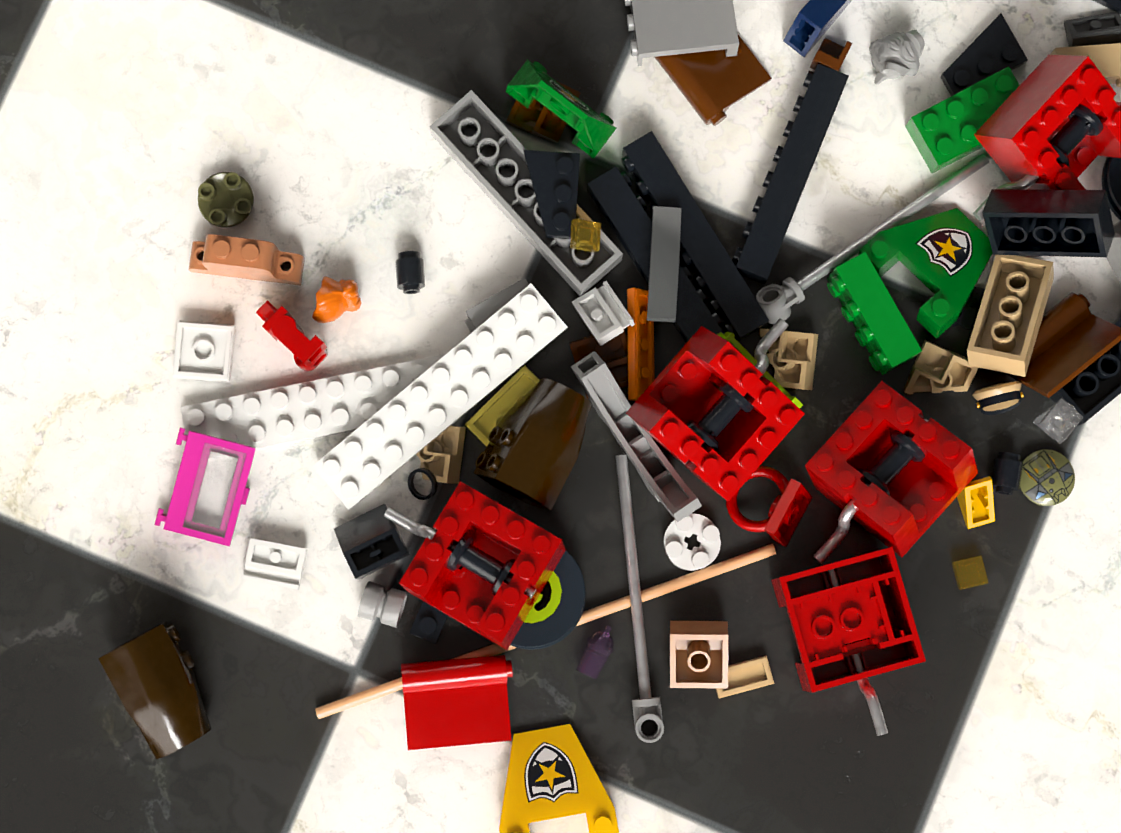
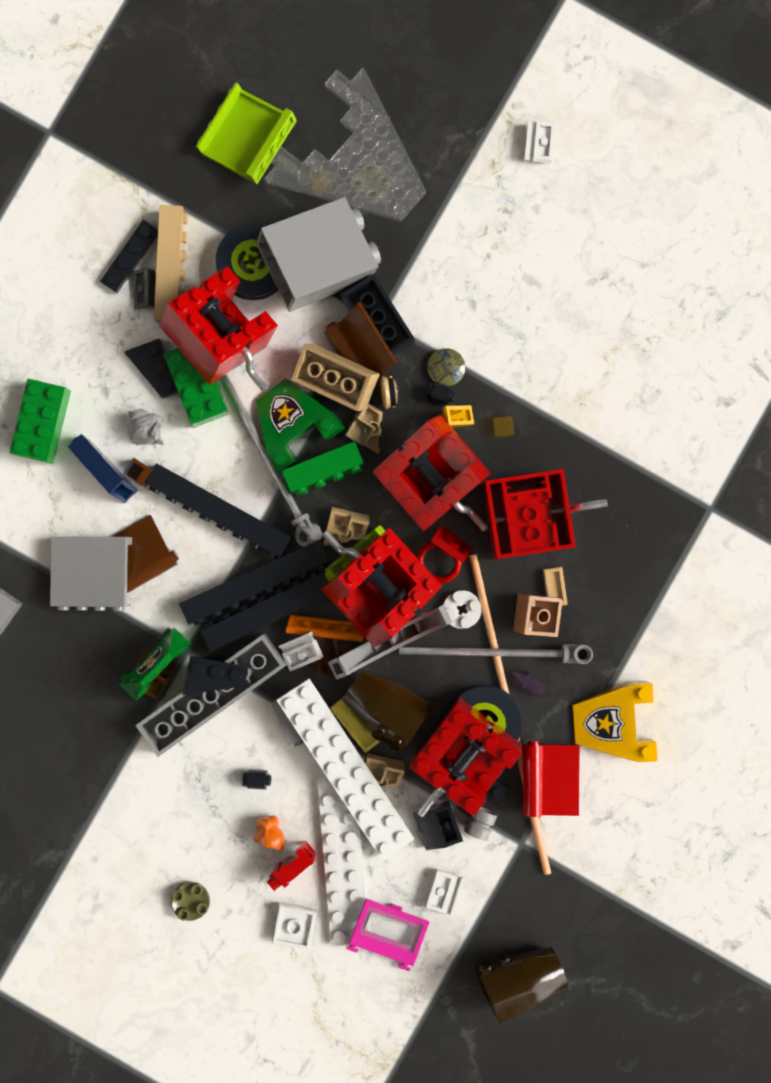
camera: 80 degrees left, 5 degrees up
(245, 260) = (235, 891): nougat brick -> none
(415, 493) = (401, 780): black piece -> none
(585, 235) = (248, 659): clear yellow tile -> none
(664, 264) = (273, 607): dark grey slope -> none
(1049, 222) = (278, 344): black brick -> none
(1059, 420) = (411, 355): clear bracket -> none

